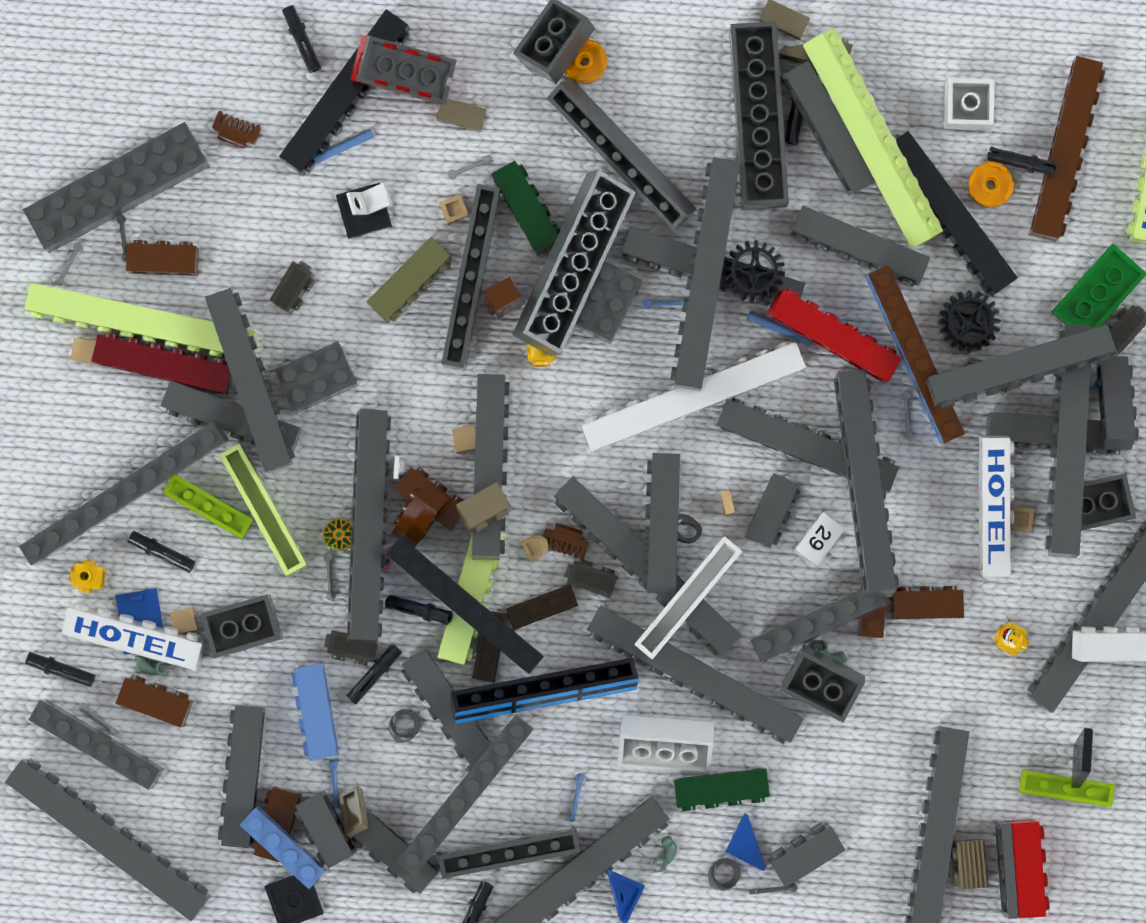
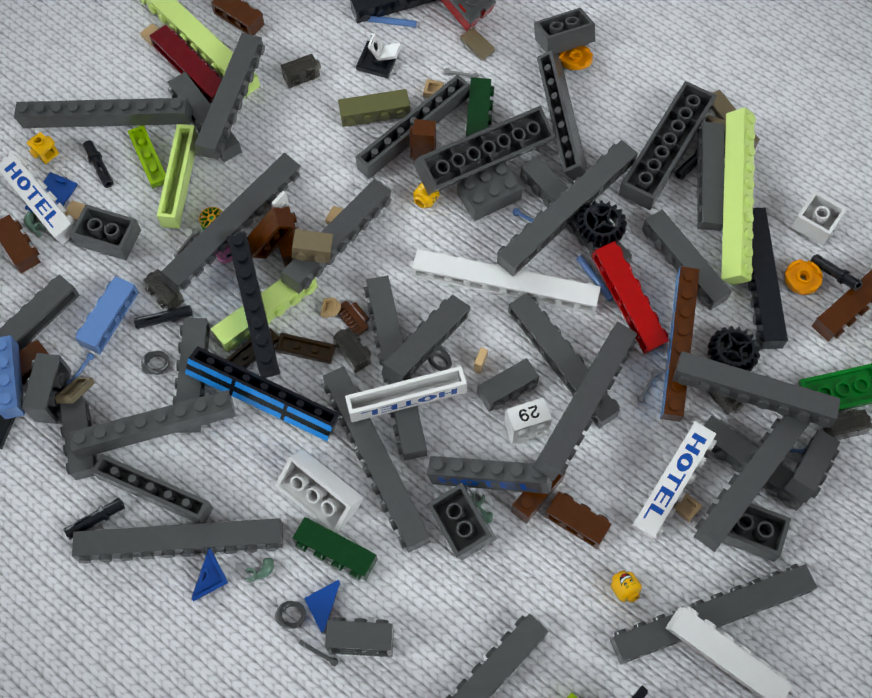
camera: 30 degrees right, 20 degrees down
(316, 377) = (273, 125): dark grey brick -> none
(425, 611) = (227, 296): black pin -> none
(579, 778) = (242, 476): medium blue hinge -> none

